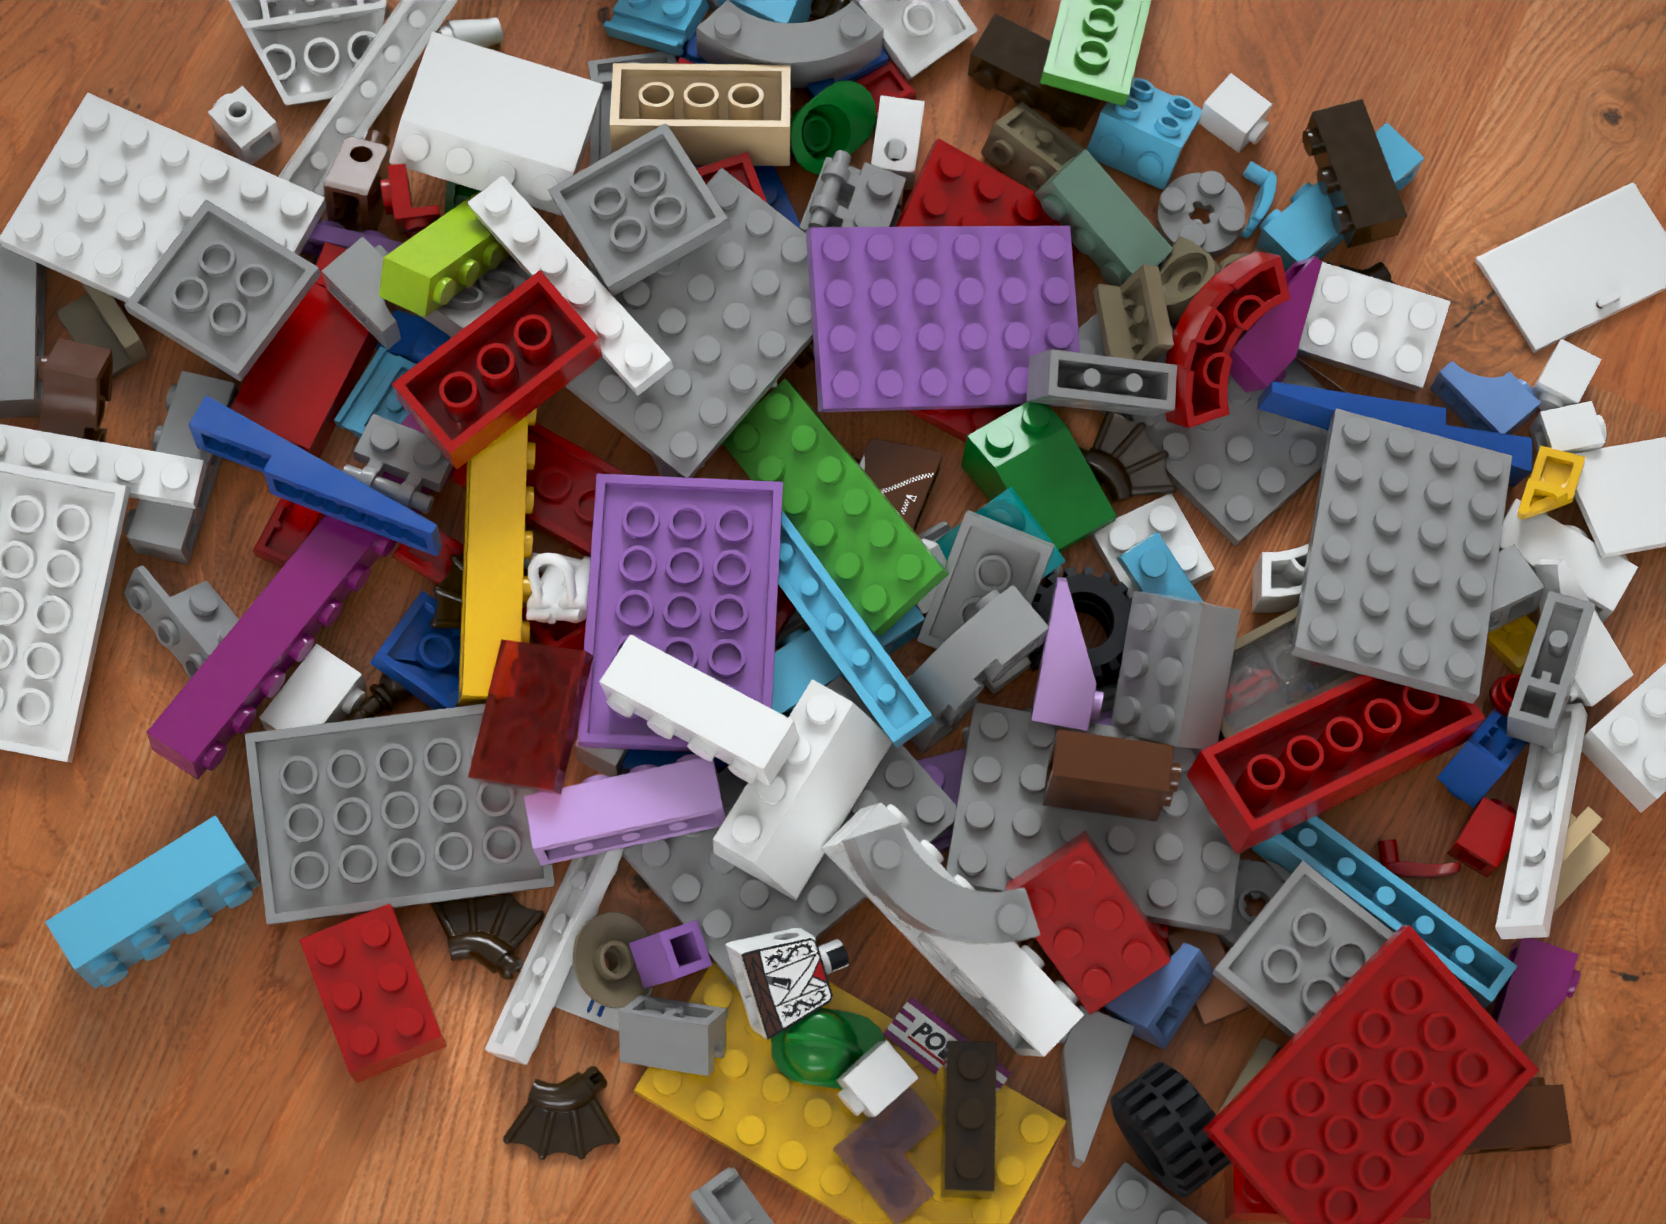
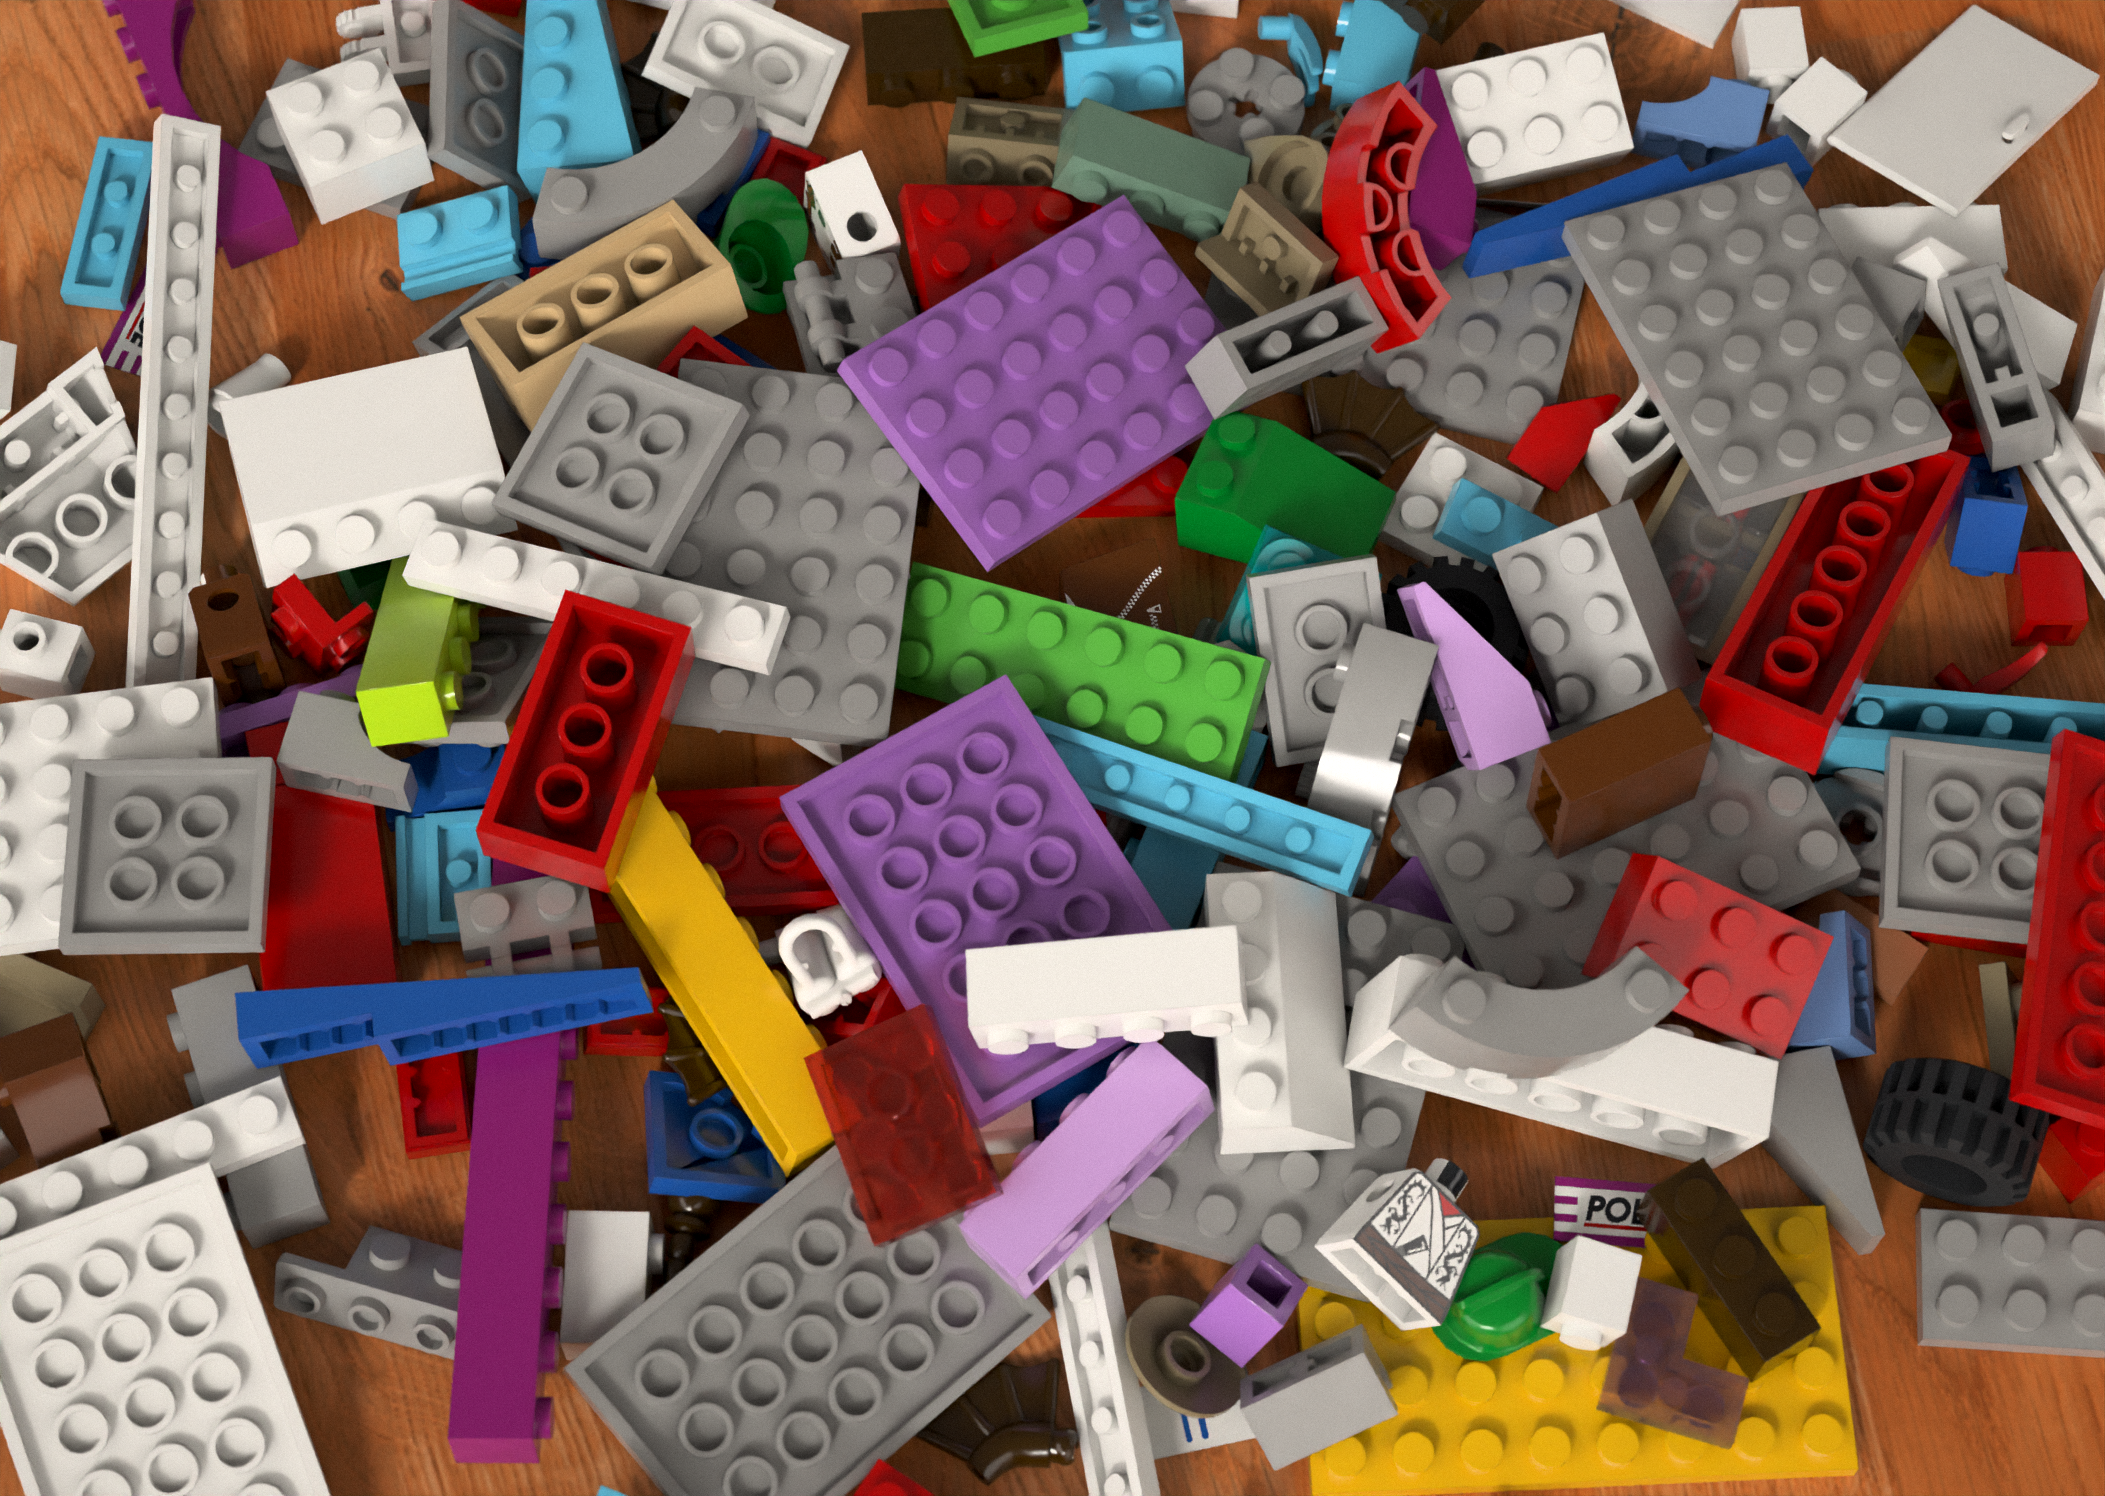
camera: 30 degrees left, 5 degrees down
(1243, 543) = (1560, 438): none -> red slope
(1551, 482) = (1844, 167): yellow slope -> none

